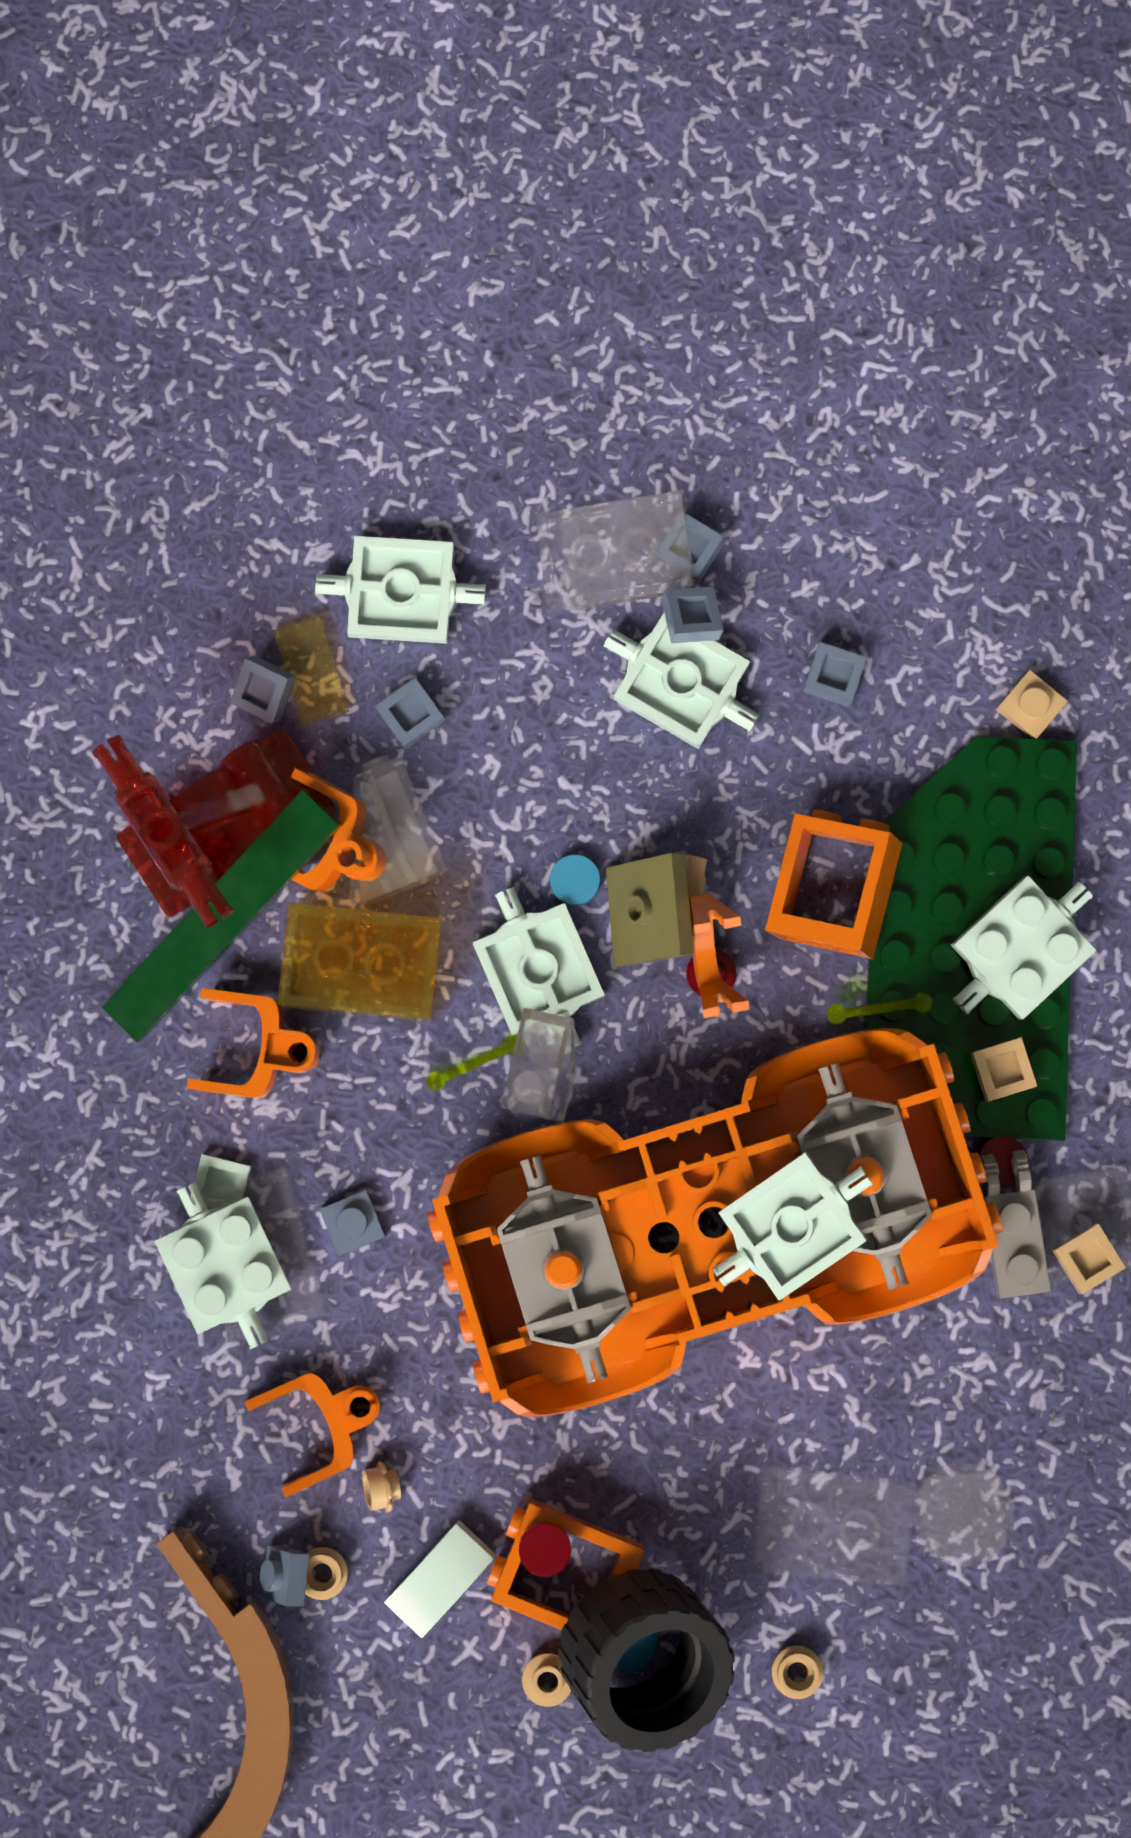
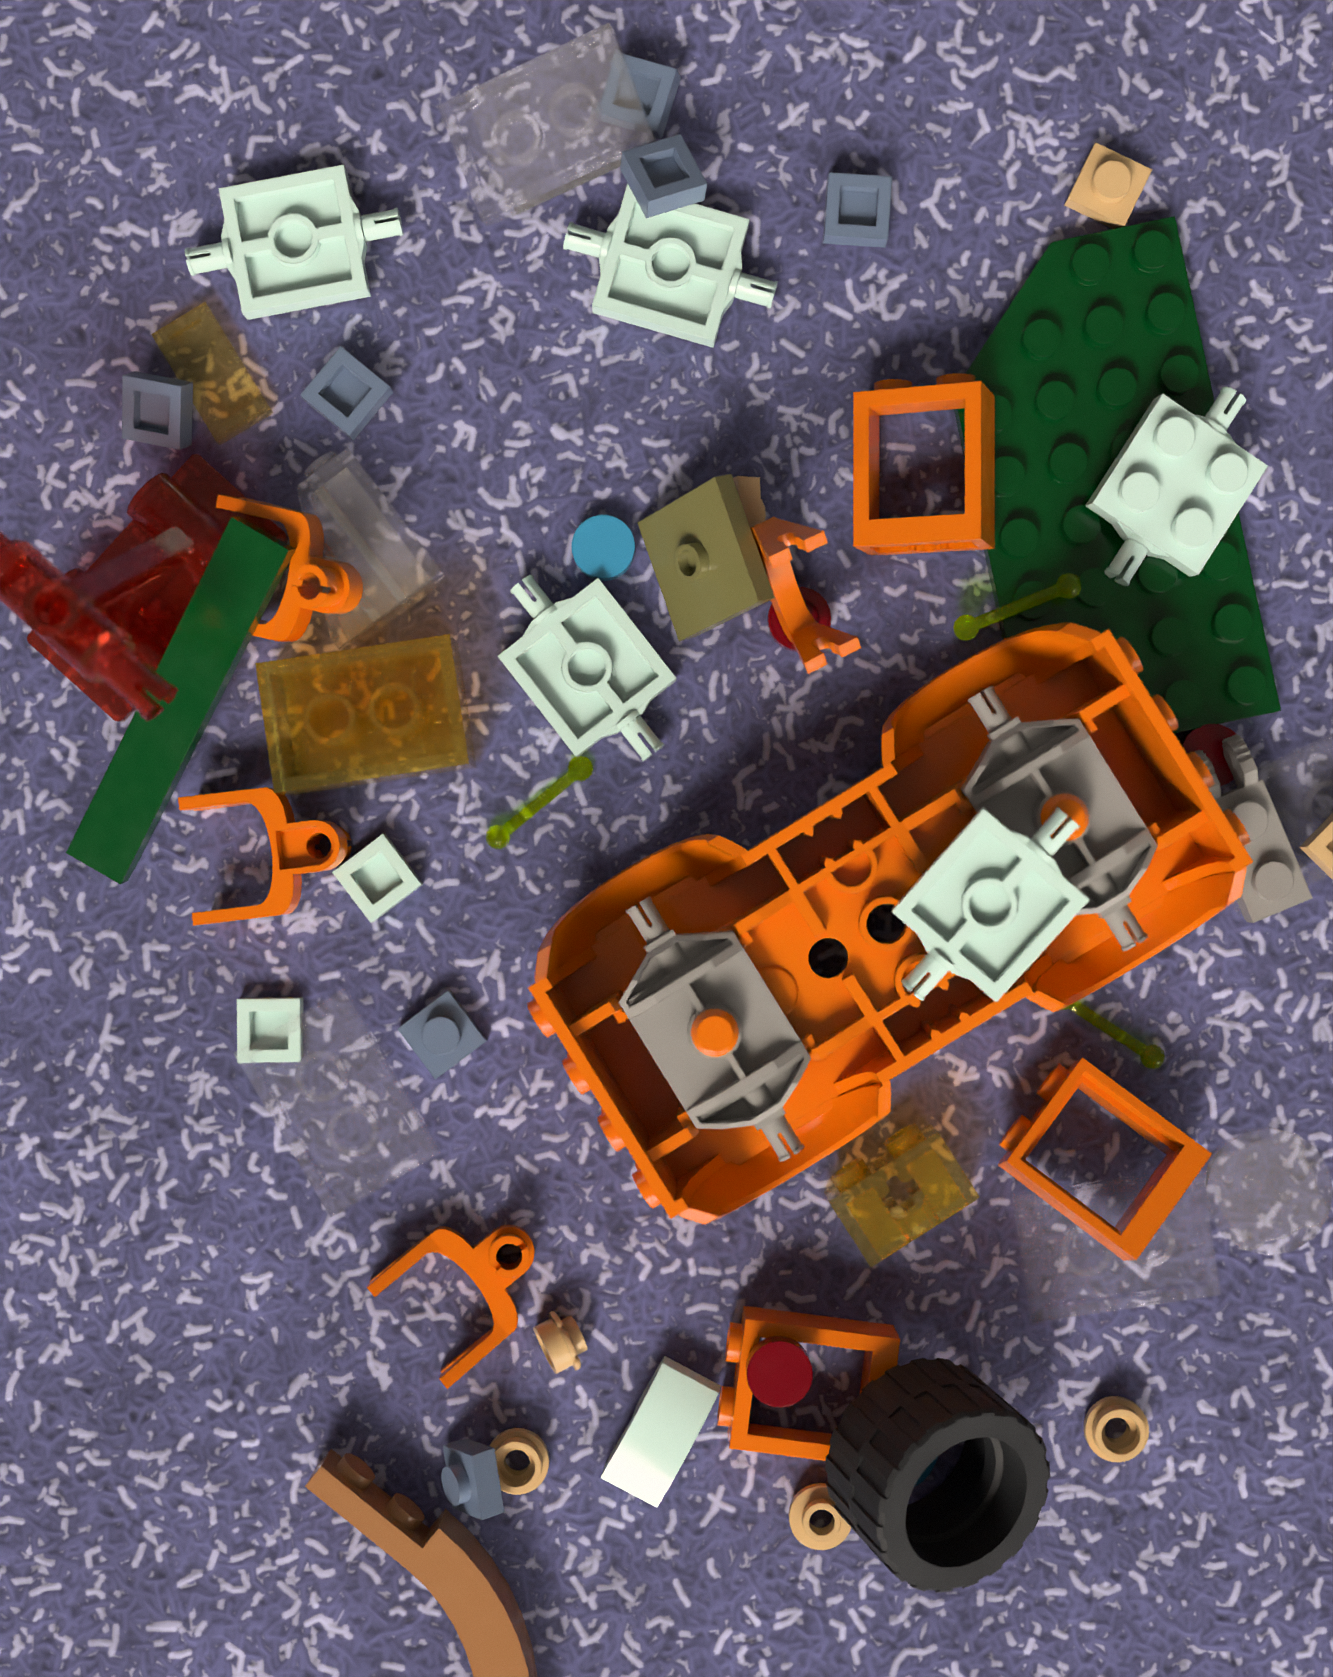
camera: 15 degrees left, 5 degrees up
(222, 1265) = (296, 1128): light aqua plate -> none
(334, 1089) = (377, 878): none -> light aqua tile
(541, 1066) = (622, 785): clear slope -> none
(657, 1461) = (934, 1193): none -> clear yellow brick
(816, 1391) = (1157, 1197): none -> orange window
(898, 1384) = (1151, 1055): none -> clear neon green hinge
(1003, 1069) = (1190, 642): tan plate -> none

